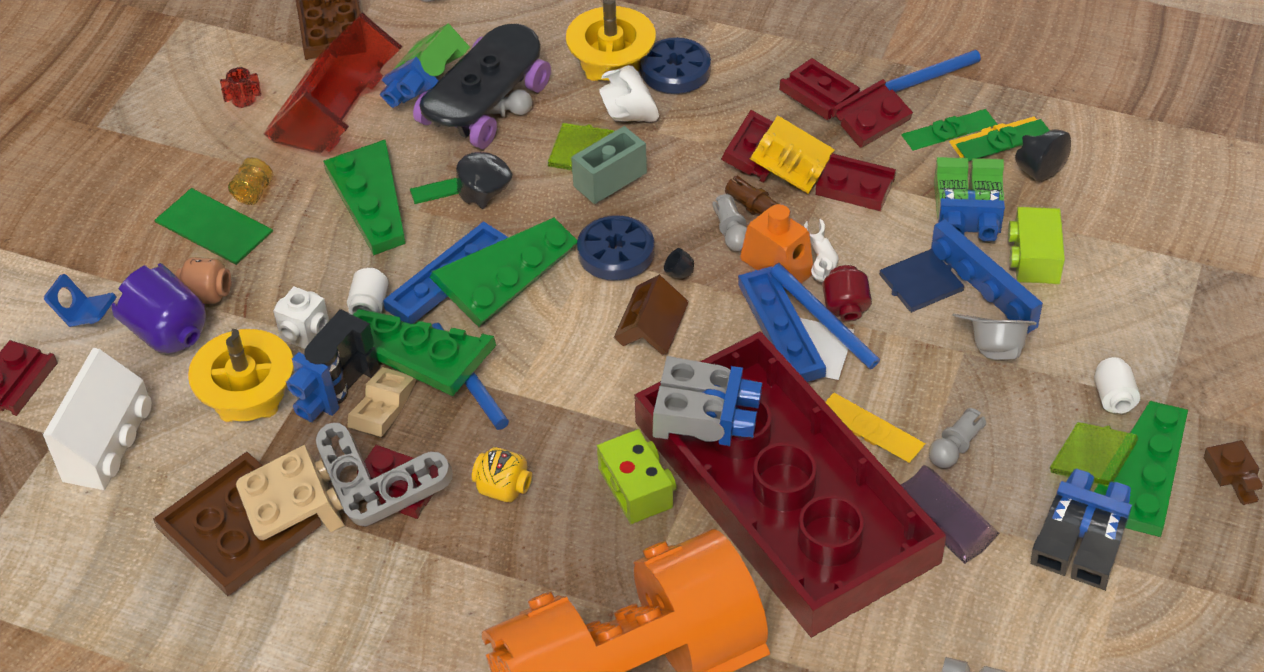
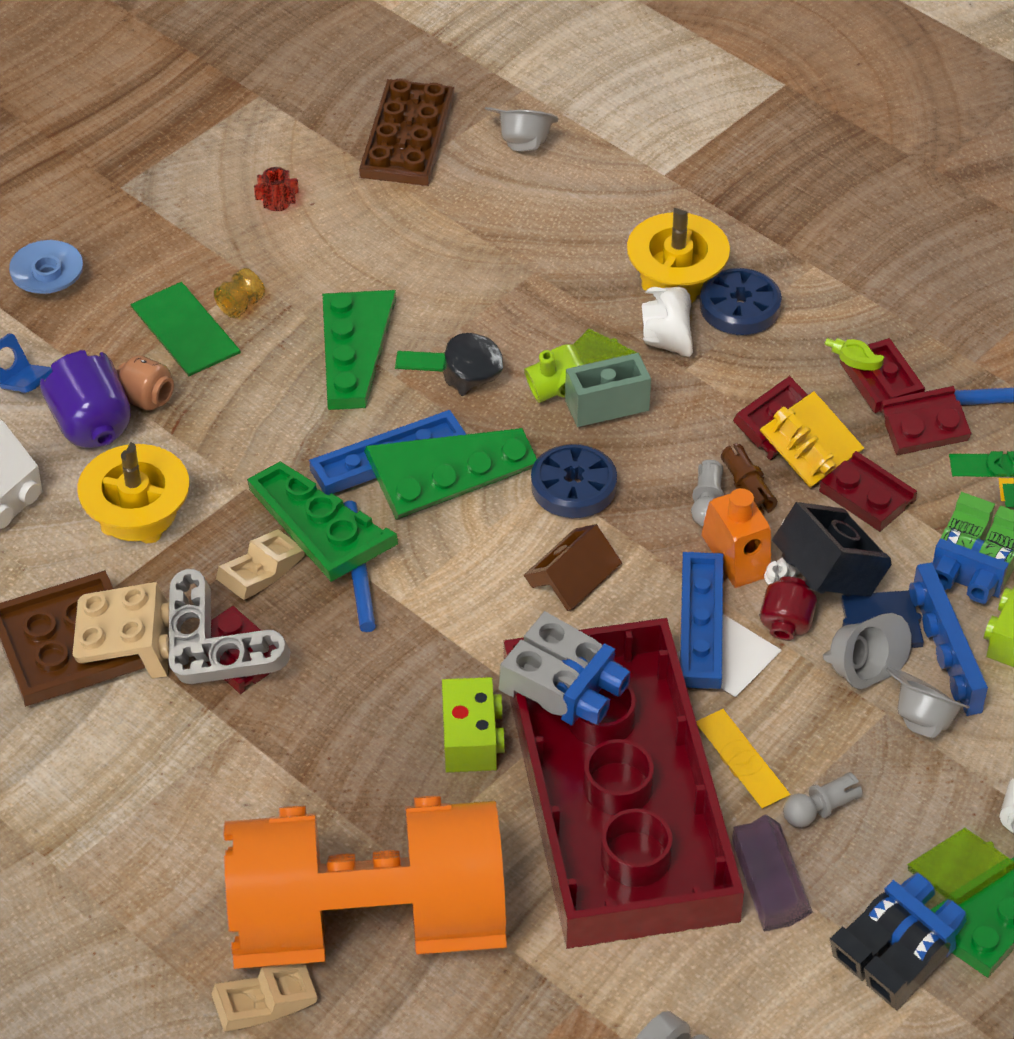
camera: 20 degrees right, 0 degrees up
(64, 210) = (46, 266): none -> medium blue dish
(300, 316) = (221, 452): white brick -> none
(330, 86) = (365, 219): clear red windscreen -> none
(332, 365) = (223, 511): hips -> none
(367, 291) = (298, 446): white brick -> none
(422, 65) = (466, 221): hips -> none
(482, 80) = (521, 255): black piece -> none
(501, 474) = (338, 677): yellow head -> none
(518, 102) = (552, 291): light grey pin -> none
(555, 166) = (549, 375): none -> lime piece
(679, 264) = (630, 520): black hinge -> none
(793, 77) = (855, 354): none -> lime piece
(826, 317) = (751, 625): blue piece -> none
(863, 234) = (831, 550): none -> black hinge
(929, 305) = (867, 648): none -> light grey piece

